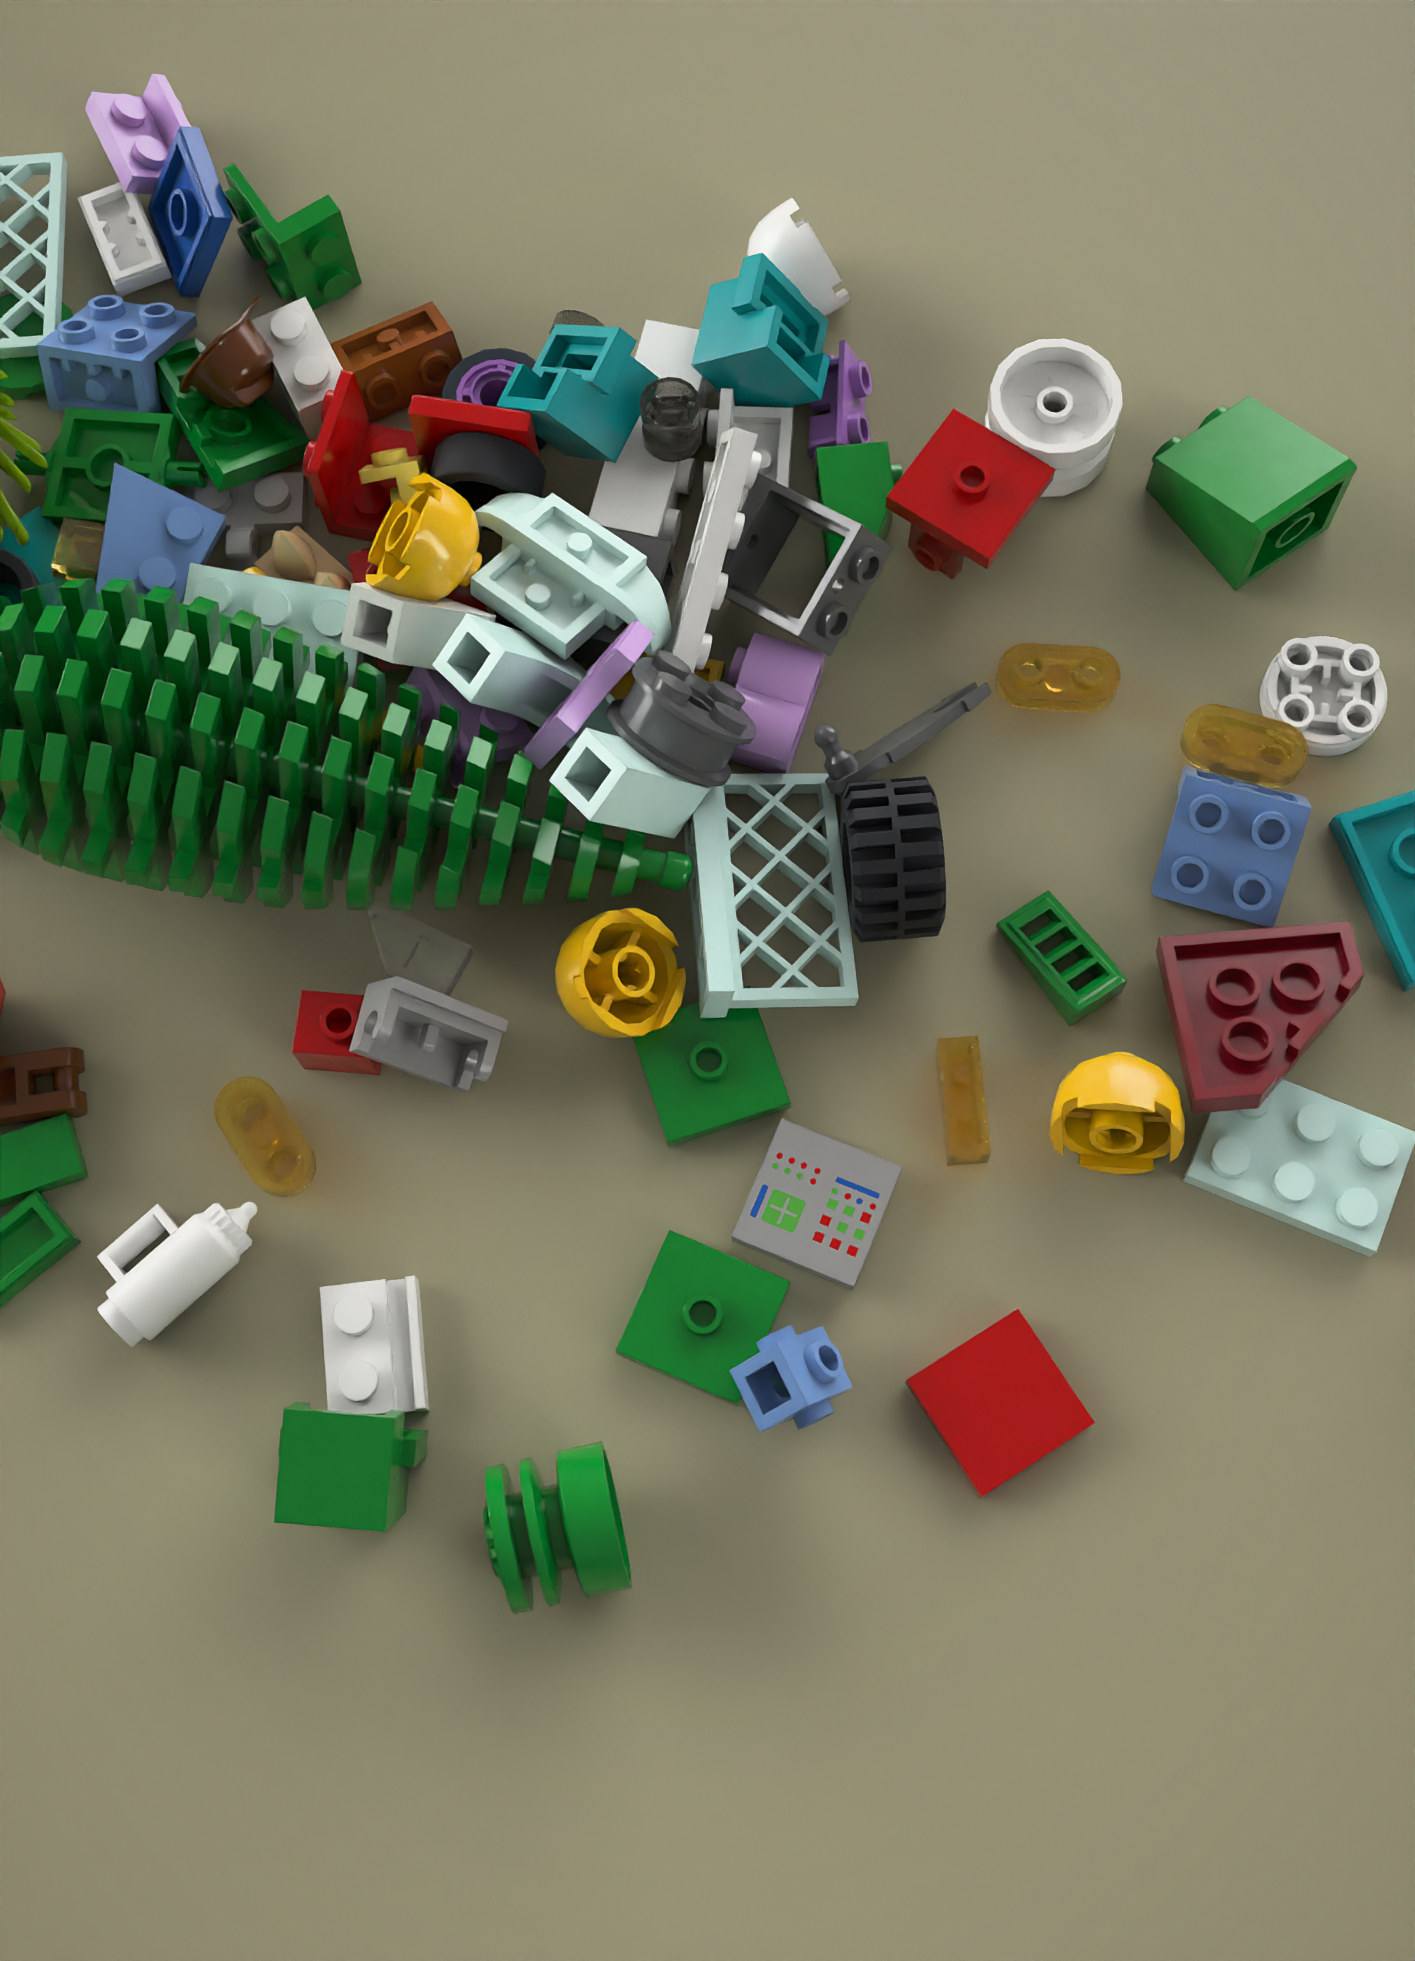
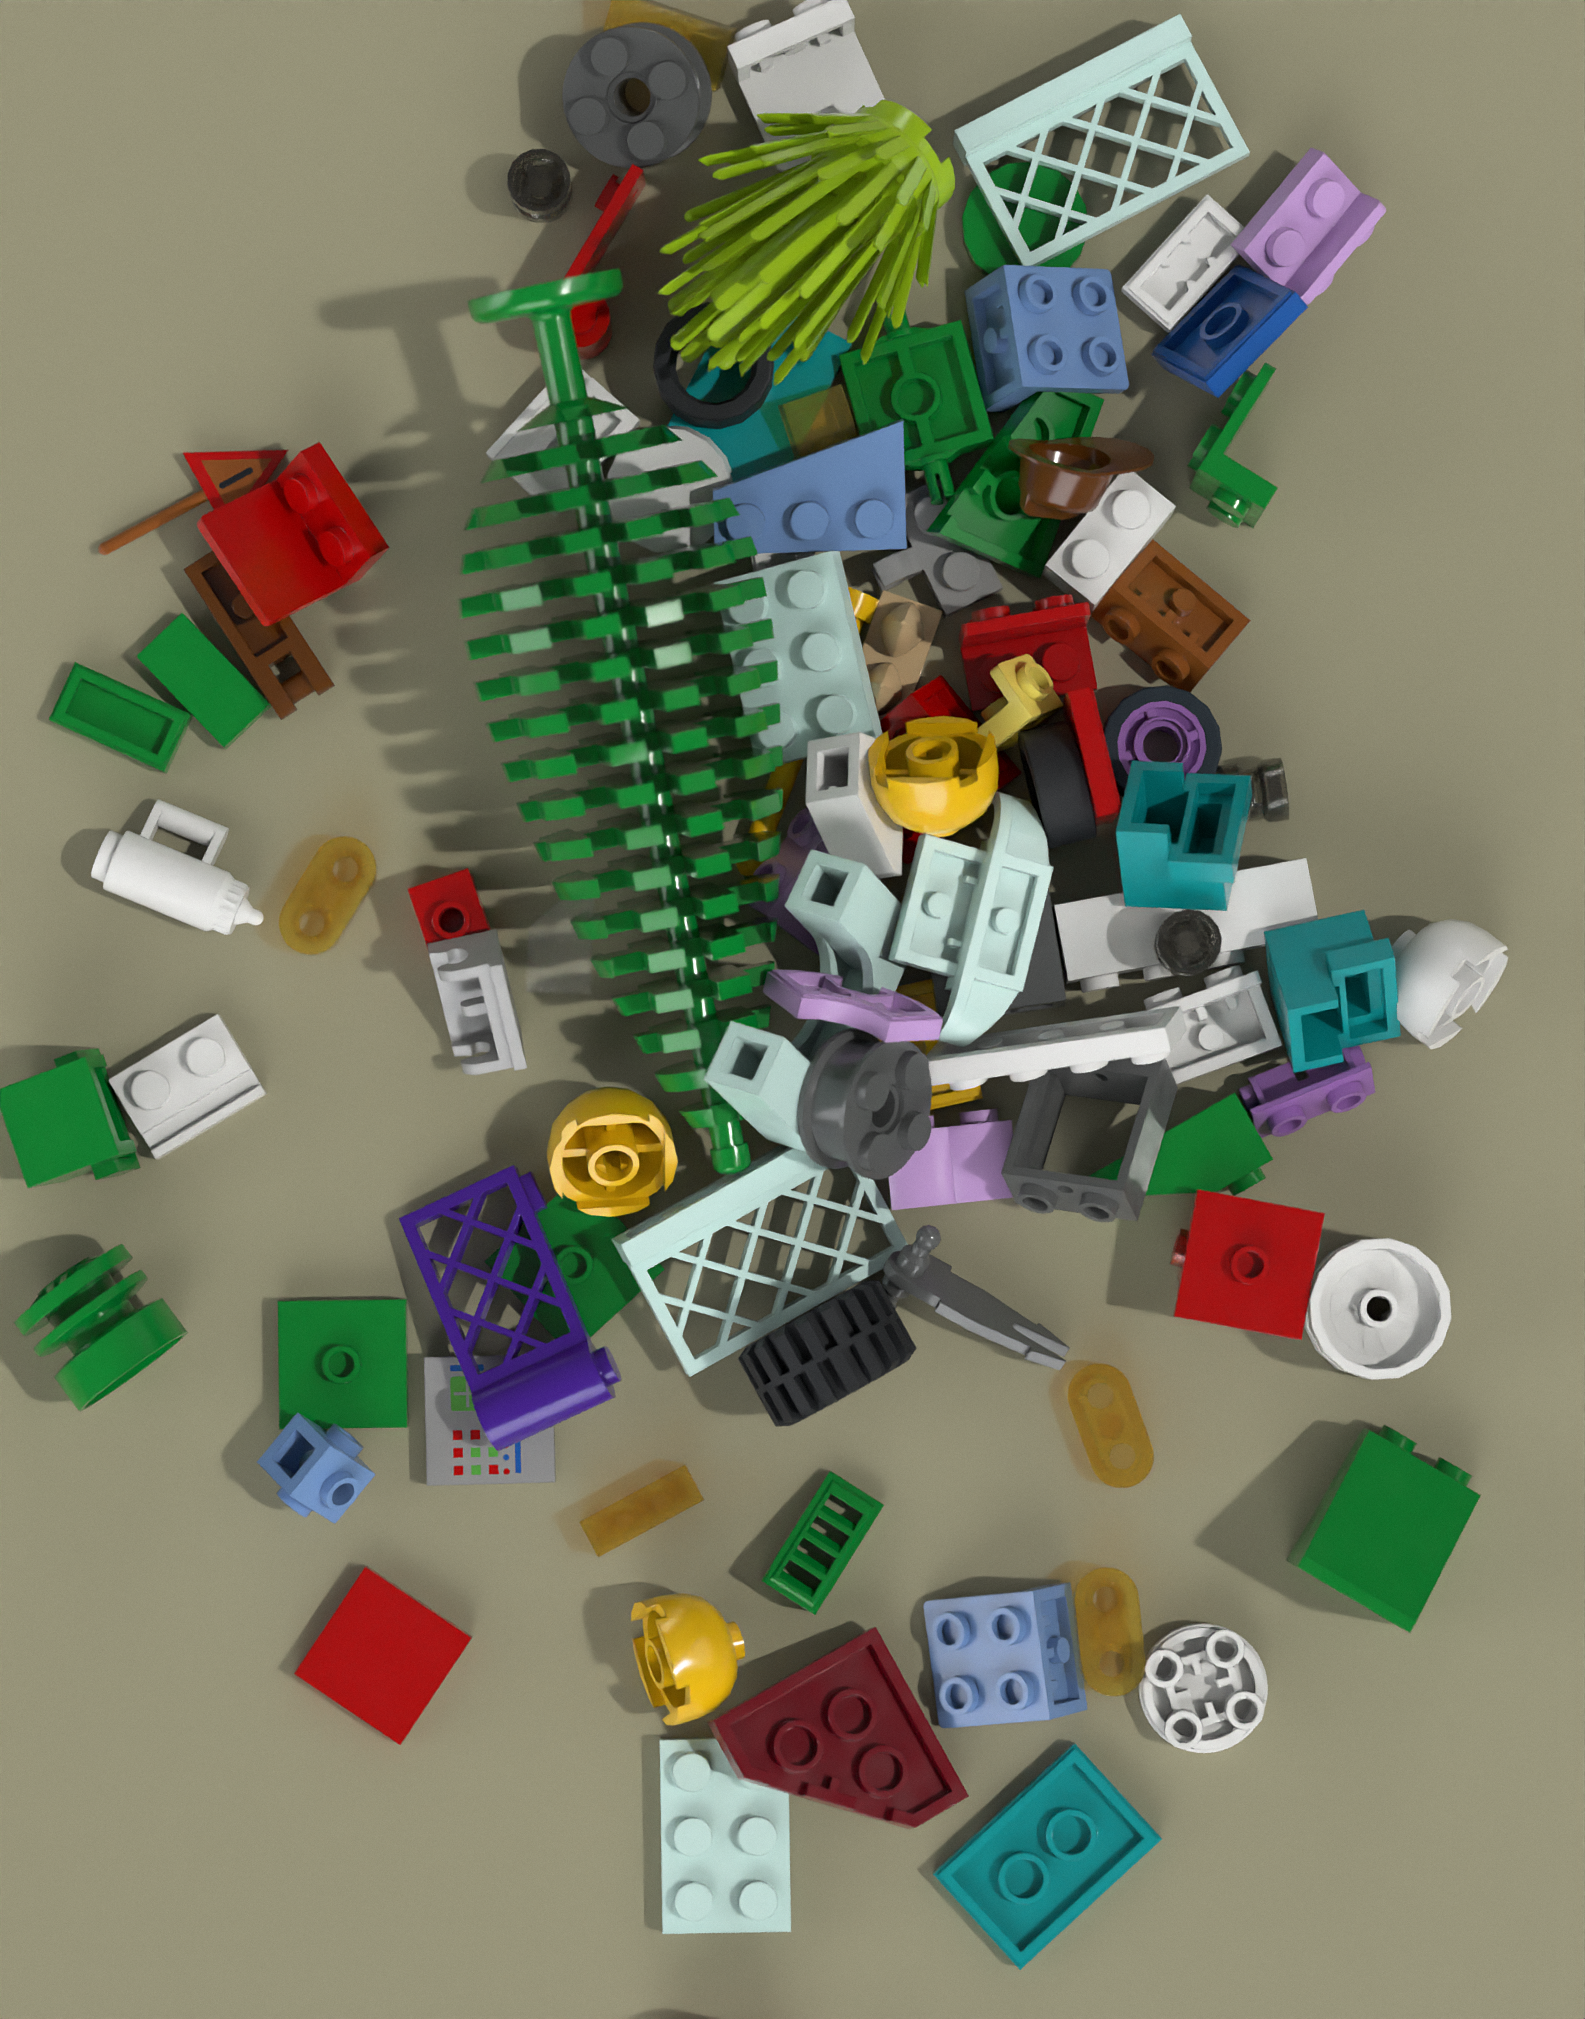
camera: 65 degrees right, 15 degrees up
(805, 1117) = (542, 1384): none -> dark purple piece

